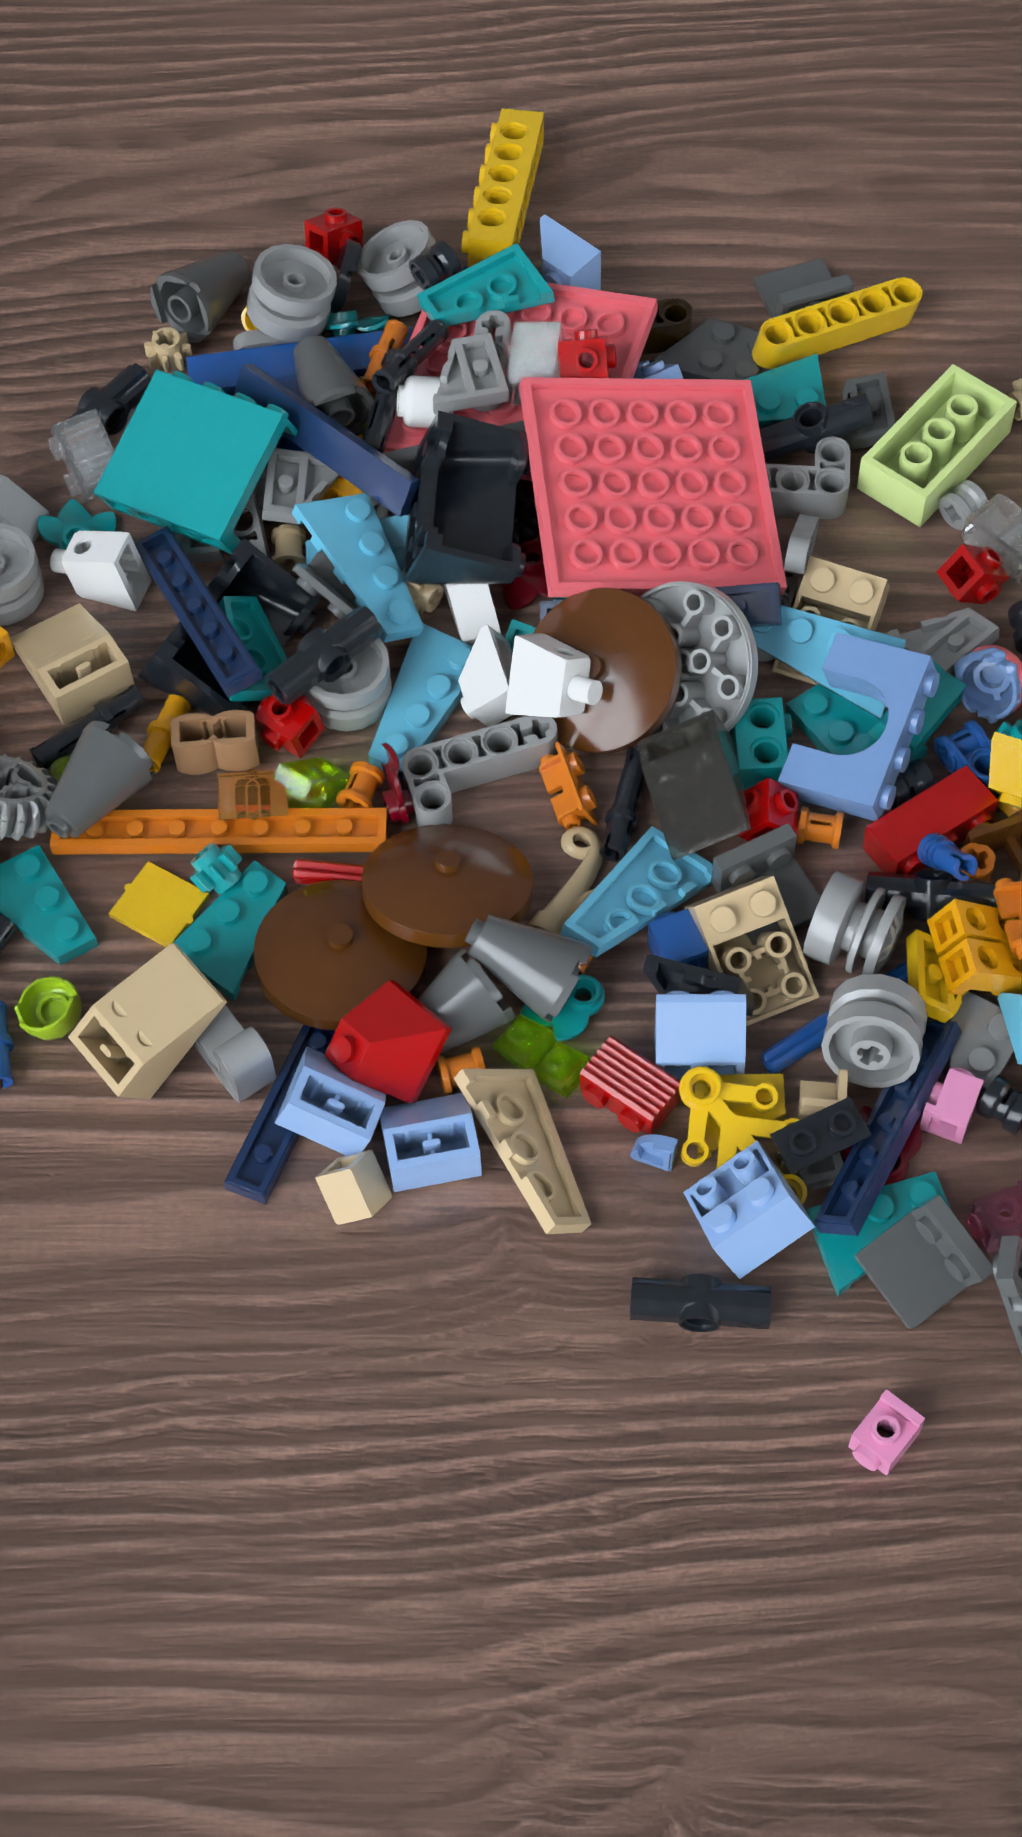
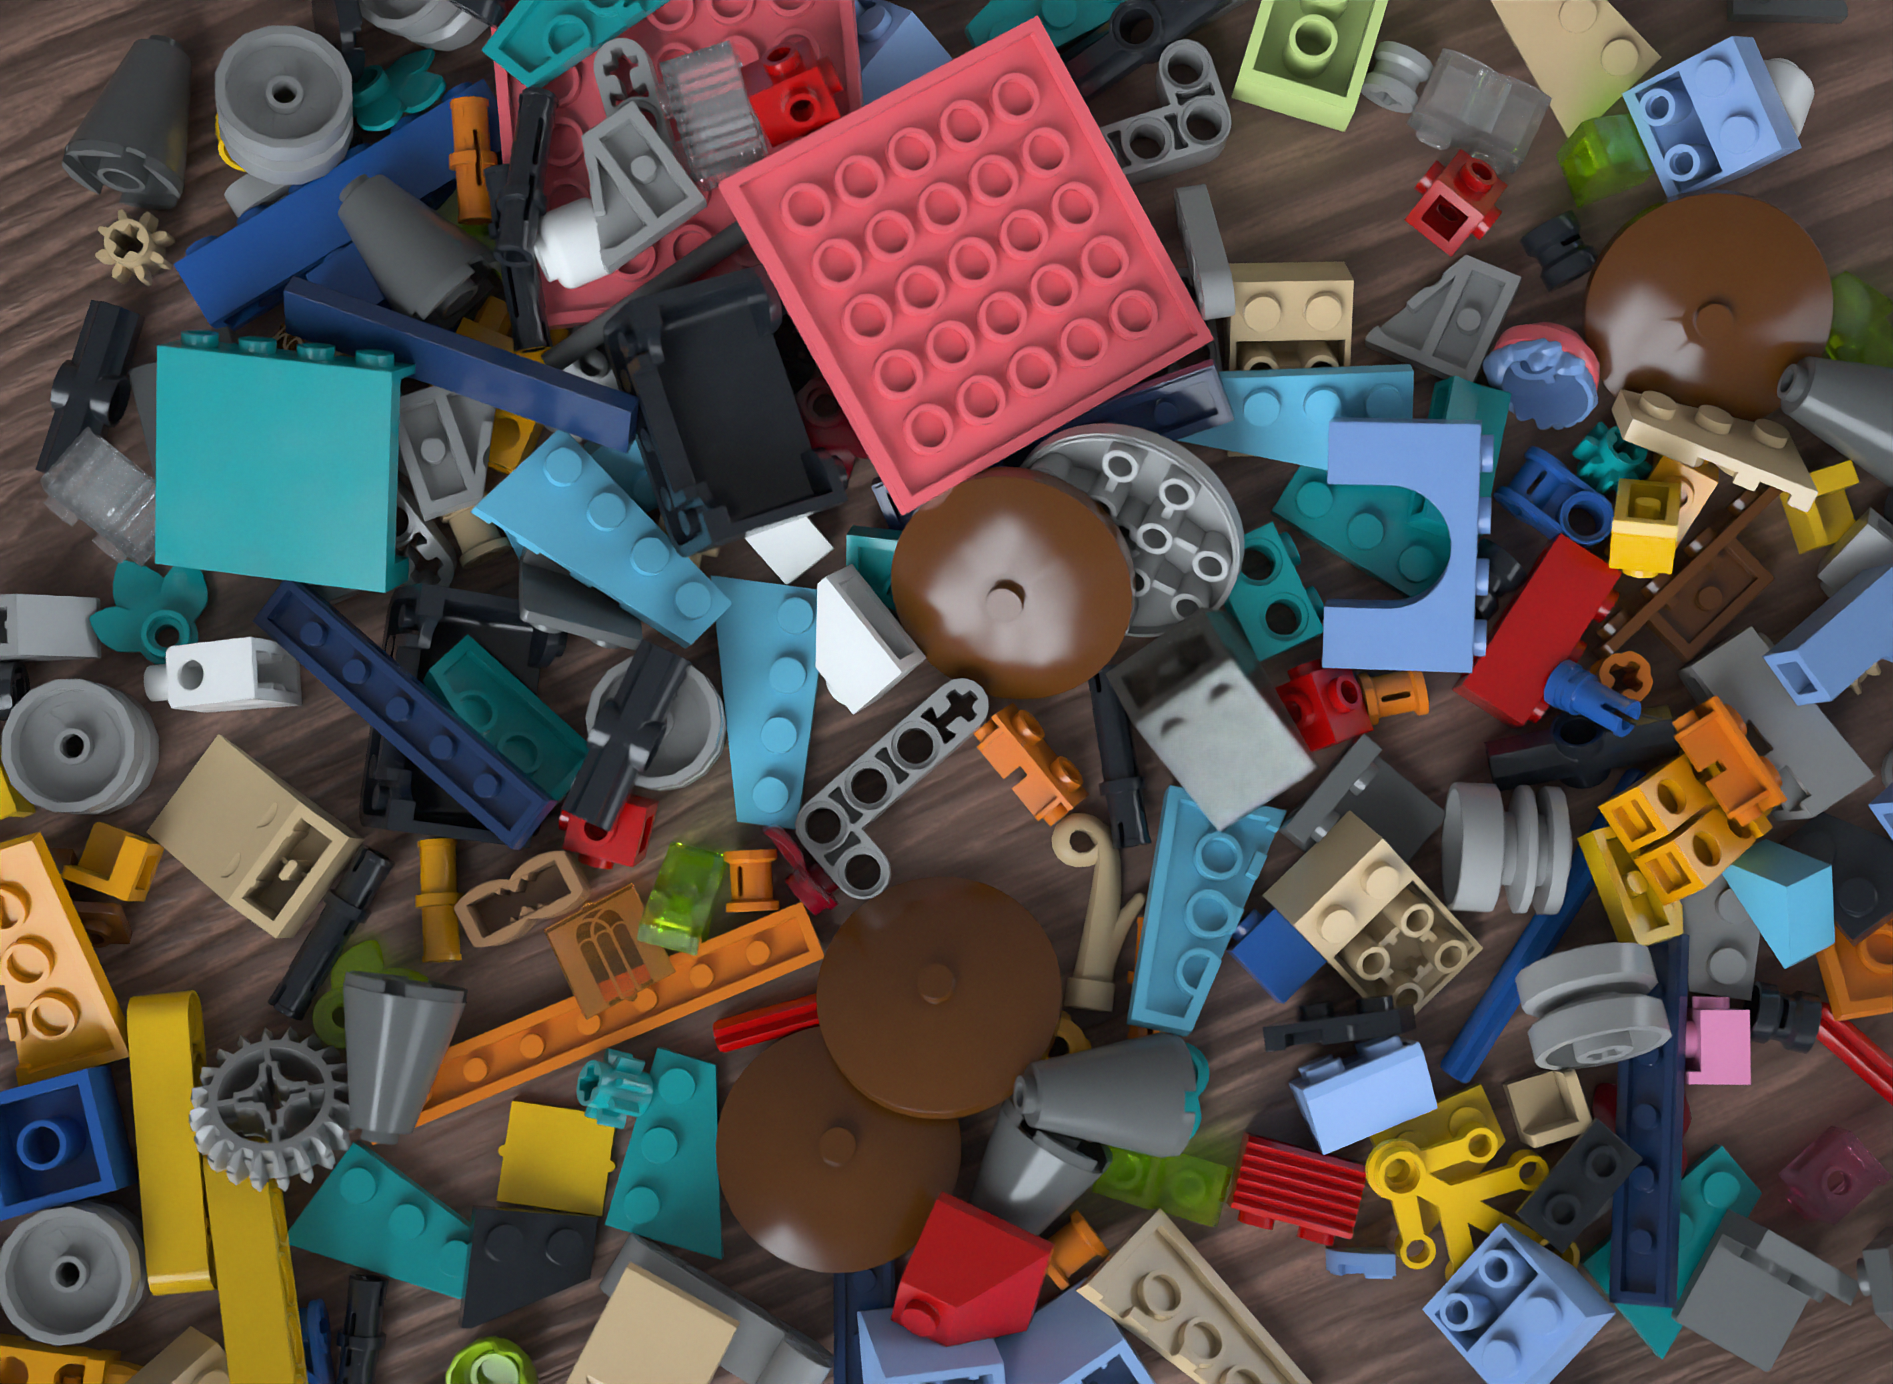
camera: 20 degrees left, 25 degrees up
(106, 942) = (522, 1258): none -> black wing
(549, 678) = (956, 643): white torso -> none

